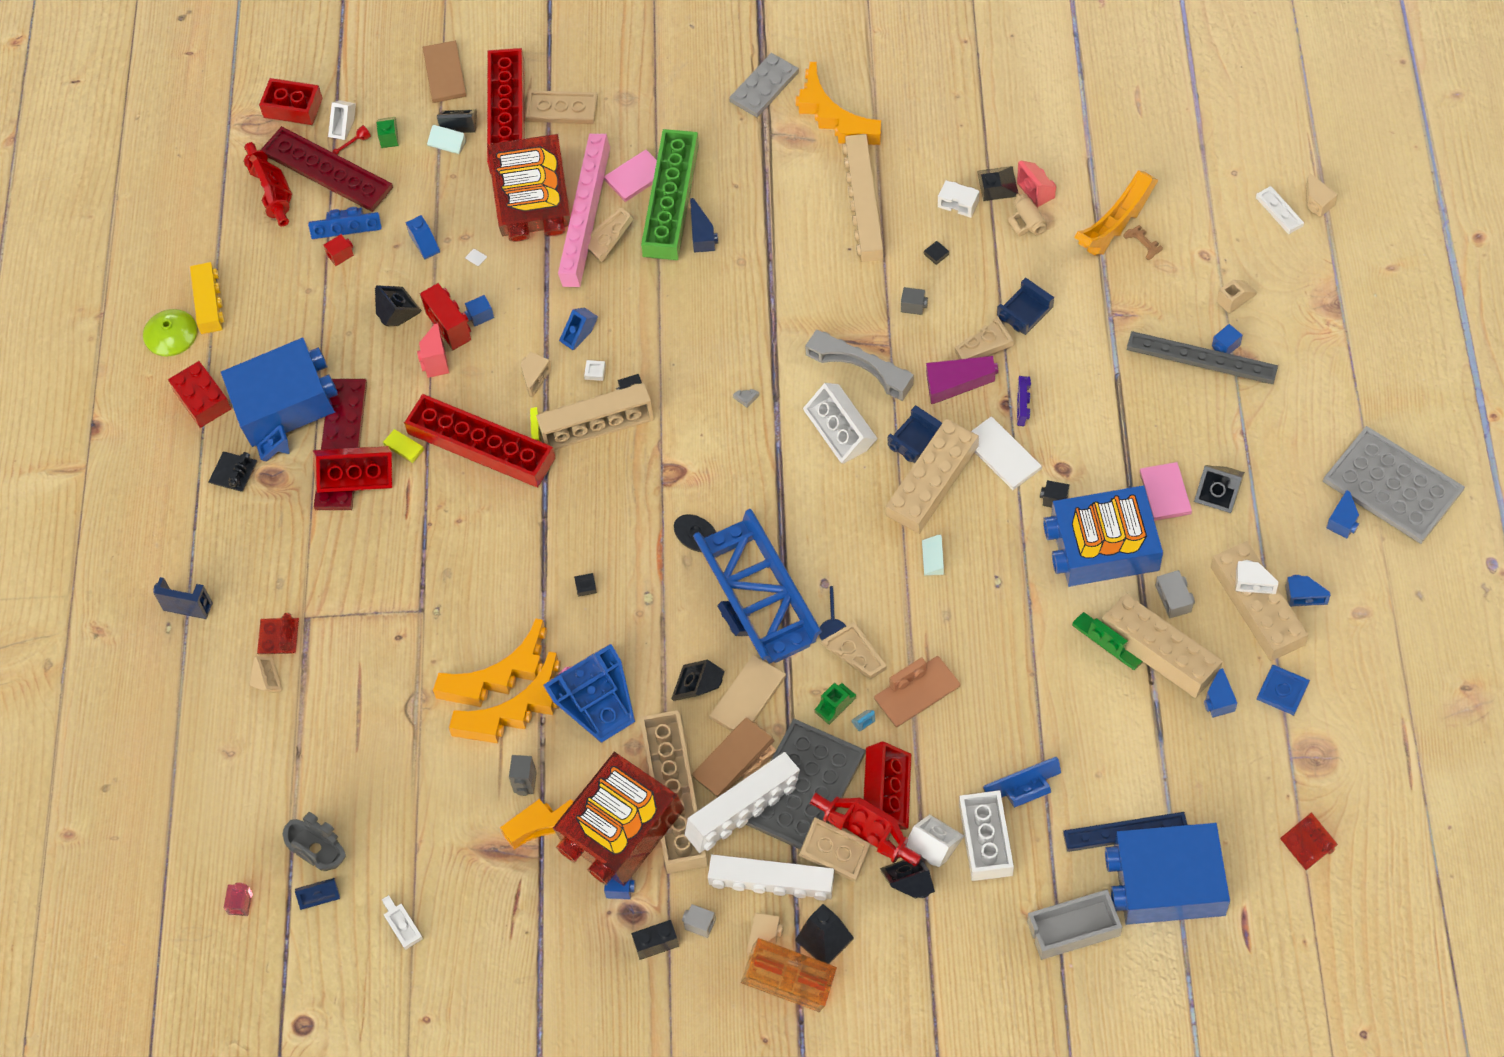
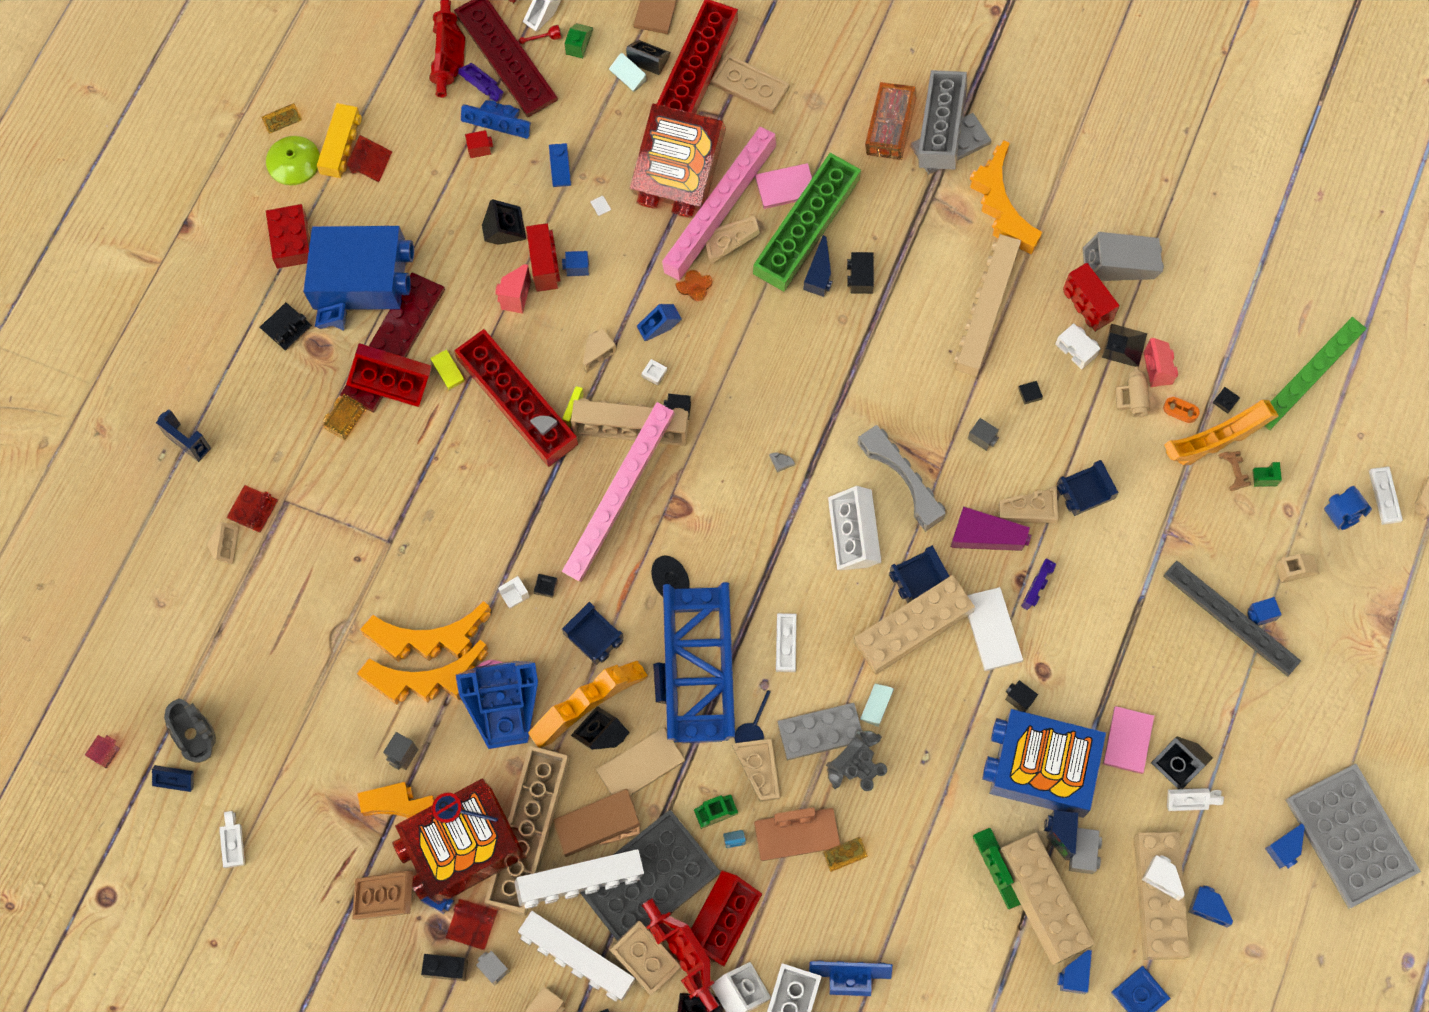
camera: 20 degrees right, 10 degrees up
(141, 302) = (281, 118): none -> clear yellow tile
(241, 302) = (368, 158): none -> clear red hinge
(316, 198) = (481, 81): none -> dark purple hinge
(326, 523) = (343, 416): none -> clear yellow brick
(517, 447) = (543, 423): none -> light grey tile
(559, 602) = (513, 592): none -> white panel
(568, 899) = (382, 895): none -> medium nougat tile
(595, 286) = (694, 285): none -> clear orange plate
(595, 788) = (448, 808): none -> piece
(615, 475) = (618, 492): none -> bright pink brick
(648, 606) = (592, 634): none -> dark blue panel
(661, 895) = (471, 924): none -> clear red hinge
(673, 652) = (584, 699): none -> light orange arch
(703, 85) = (891, 120): none -> brick
(739, 216) = (861, 272): none -> black brick
(749, 65) = (942, 120): none -> light grey brick
(826, 540) = (786, 643): none -> white tile
(894, 599) = (819, 731): none -> light grey plate
(939, 605) = (857, 761): none -> dark grey piece
(949, 154) = (1090, 297): none -> red brick
(959, 114) = (1123, 257): none -> light grey slope
(968, 688) = (845, 854): none -> clear yellow tile
(1073, 213) = (1181, 409): none -> orange beam
(1107, 190) = (1226, 400): none -> black plate
(1148, 585) = (1062, 832): none -> dark blue slope
(1169, 135) = (1315, 368): none -> bright green plate
(1174, 235) = (1267, 476): none -> green panel
(1244, 513) = (1193, 799): none -> white plate
(1253, 230) = (1347, 508): none -> blue brick

